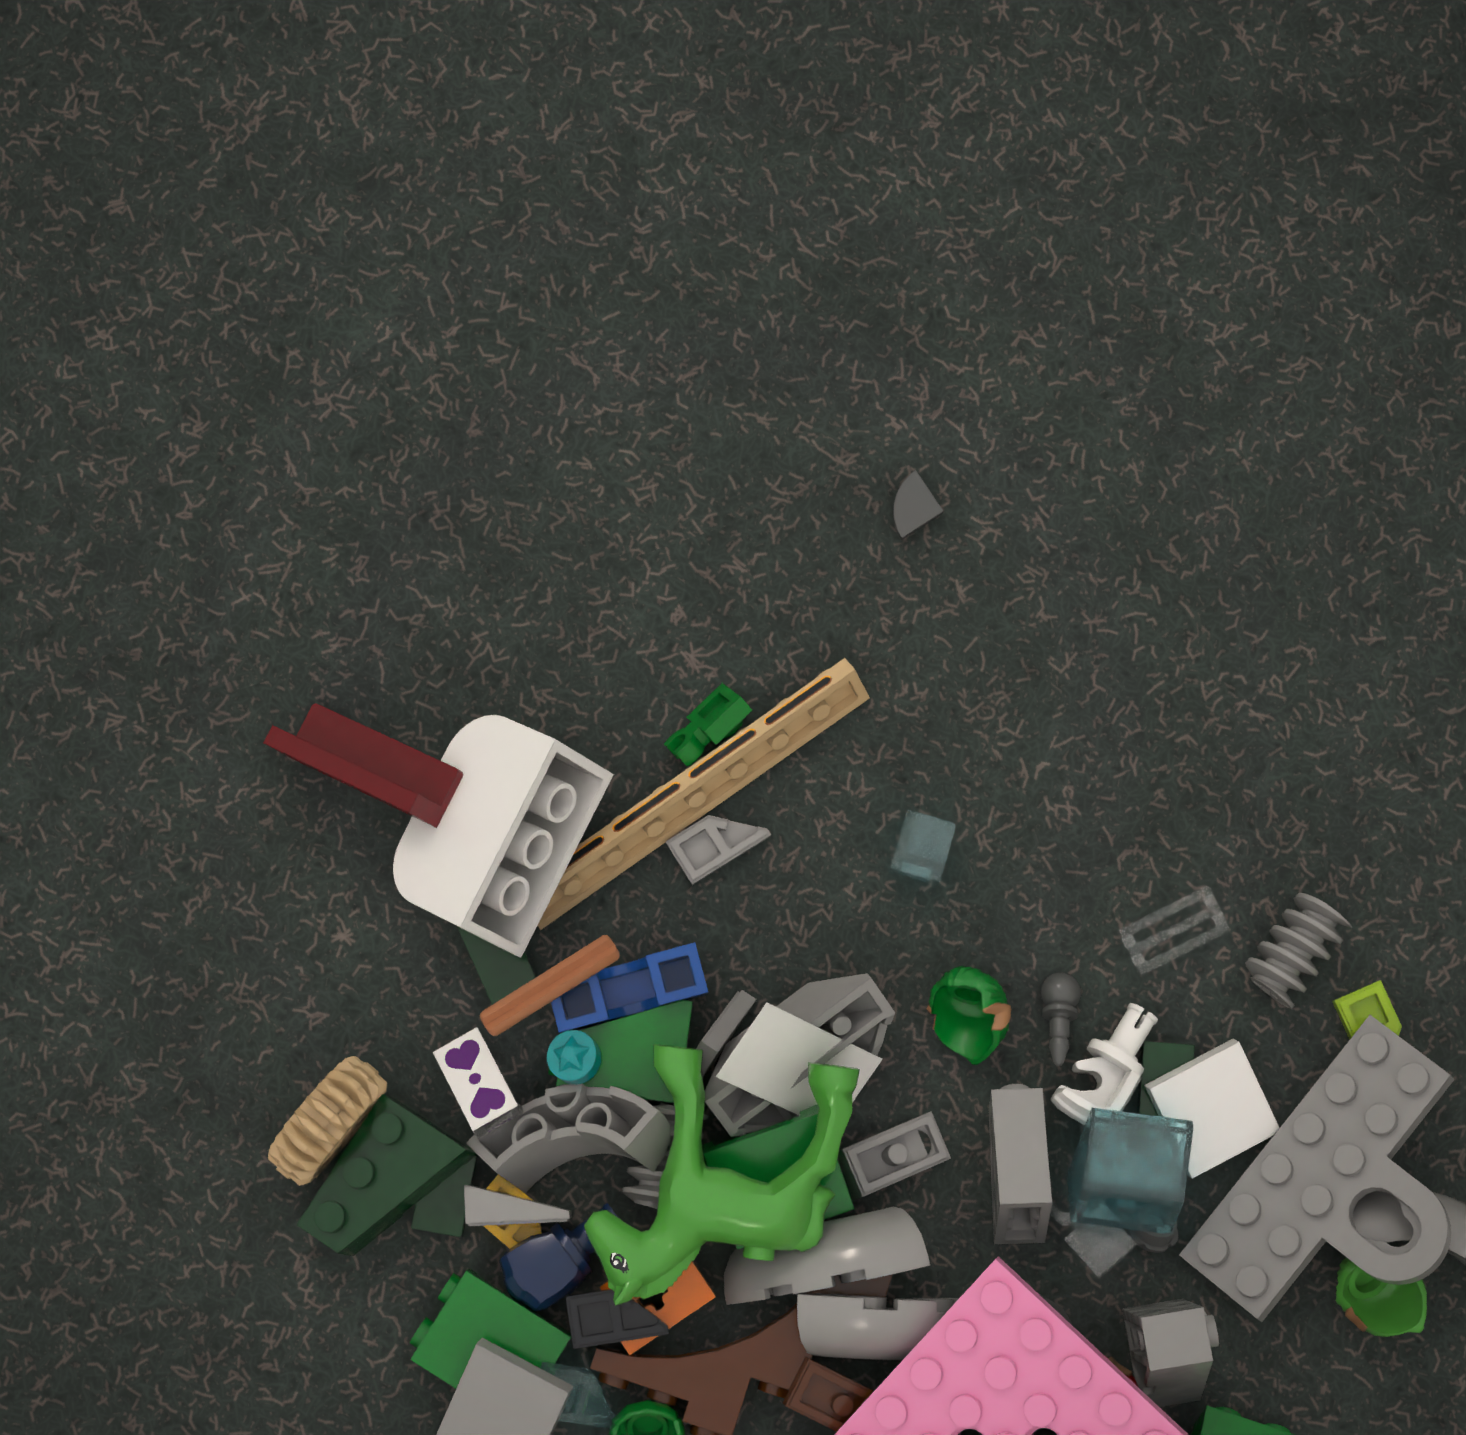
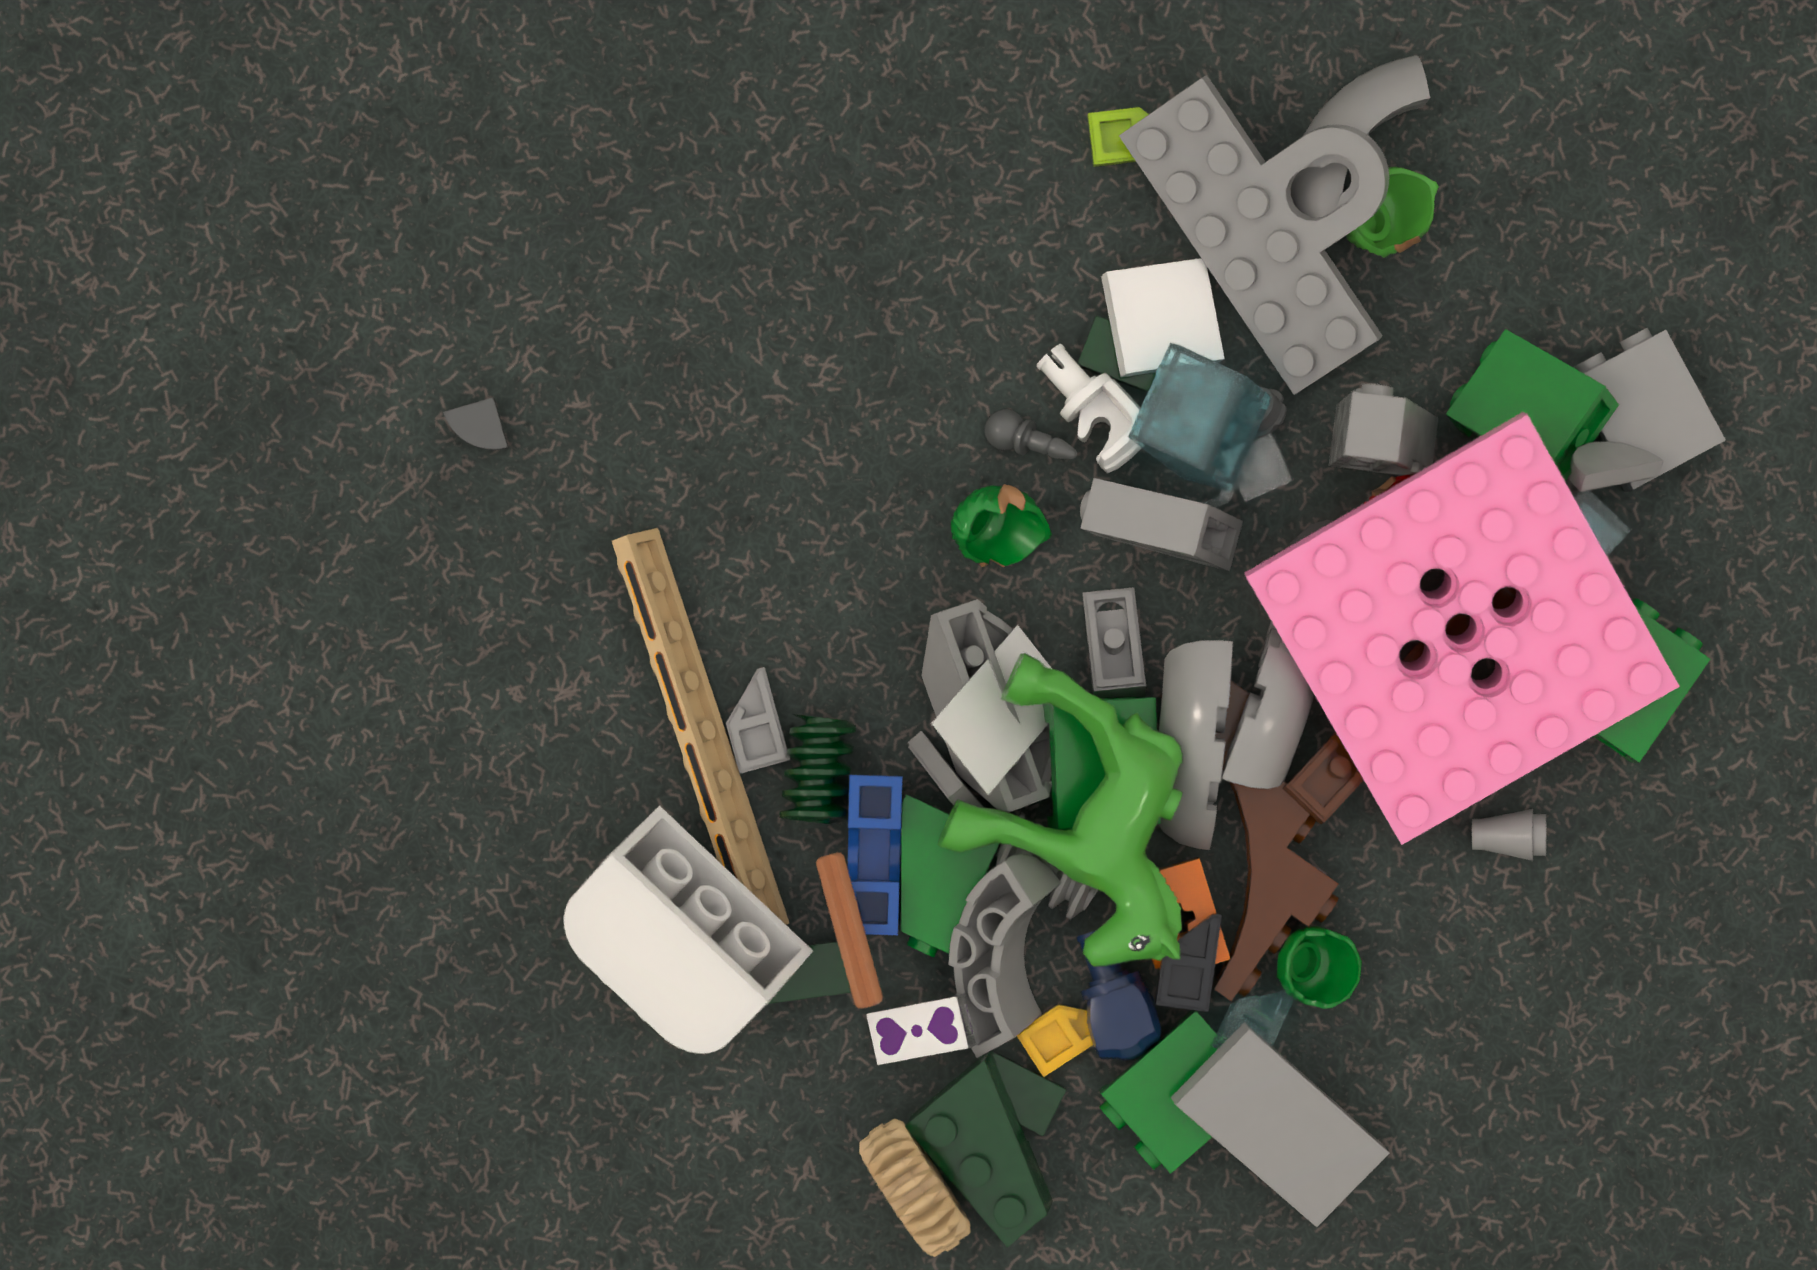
camera: 70 degrees left, 5 degrees up
(370, 763) = (575, 1043): dark red panel -> none
(497, 1208) = (1050, 1045): light grey slope -> none
(574, 1057) = (926, 927): teal tile -> none
(691, 912) = (817, 769): none -> dark green piece
(712, 721) = (634, 692): green plate -> none
(922, 847) = (822, 522): clear light blue panel -> none
(1134, 949) = (985, 343): clear tile -> none
(1295, 947) = (1032, 186): light grey piece -> none

